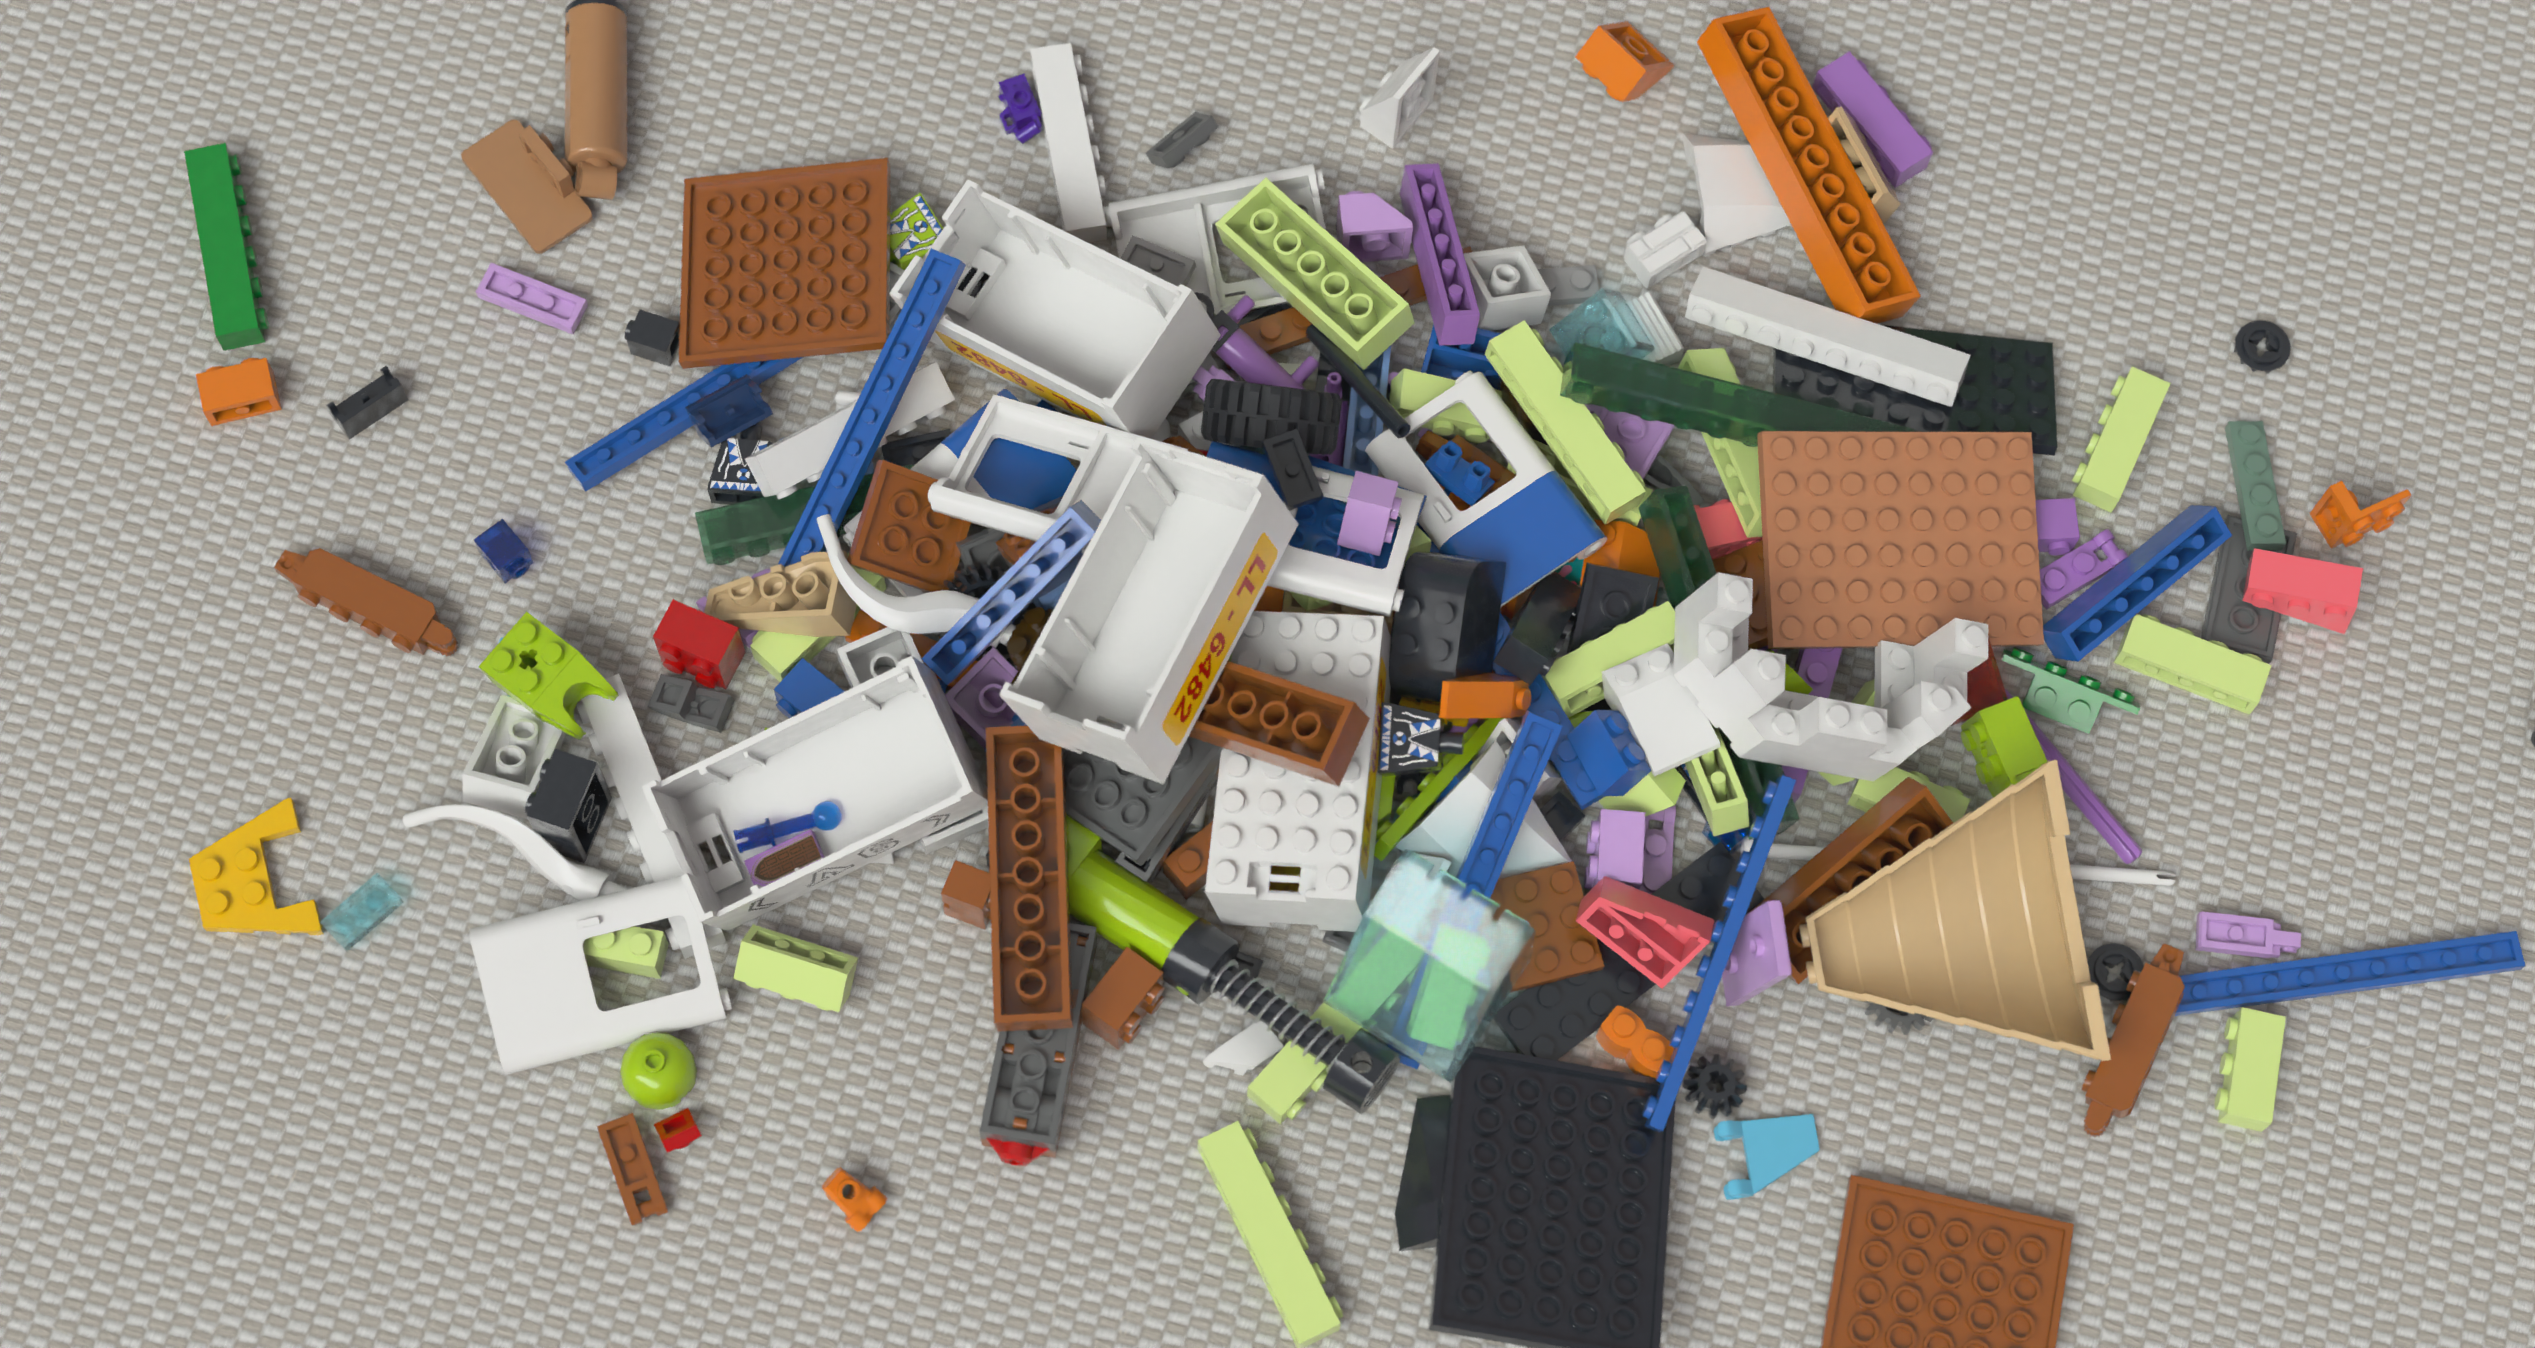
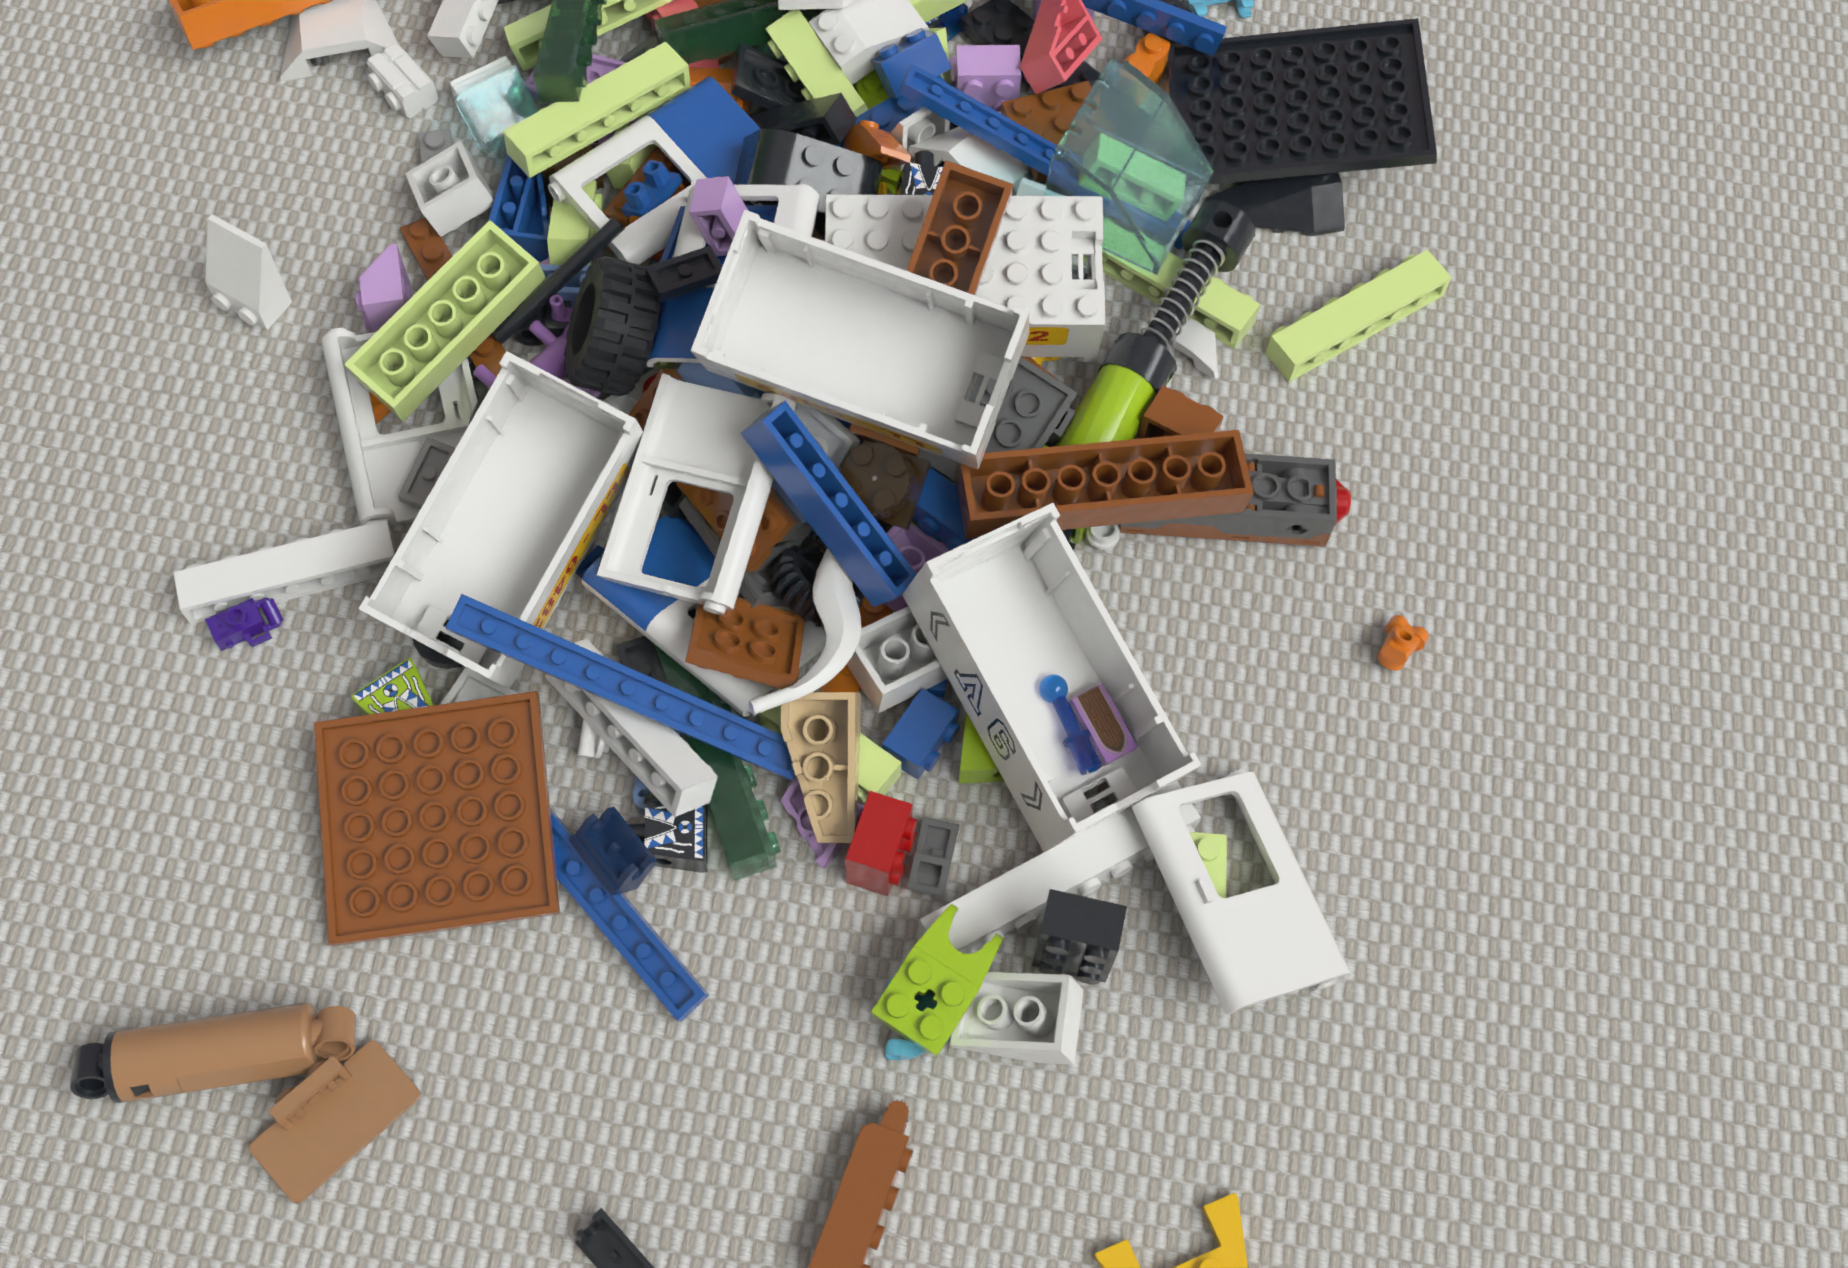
camera: 95 degrees left, 5 degrees down
(362, 912) = (1209, 1151): clear light blue plate -> none
(504, 551) = (788, 1067): clear blue brick -> none
(531, 298) = (478, 1091): lavender plate -> none
(574, 879) = (1140, 933): white animal -> none
(632, 1167) = (1414, 841): dark orange plate -> none
(653, 337) = (523, 949): black brick -> none
(658, 1070) = (1317, 832): lime cylinder -> none
(677, 1130) = (1372, 803): red plate -> none
(795, 968) = (1201, 707): yellowish green brick -> none
(967, 895) = (1105, 562): dark orange brick -> none
(1189, 134) = (285, 470): dark grey plate -> none
(1439, 255) = (422, 226): medium lavender brick -> none
(1623, 60) = (207, 119): orange slope -> none

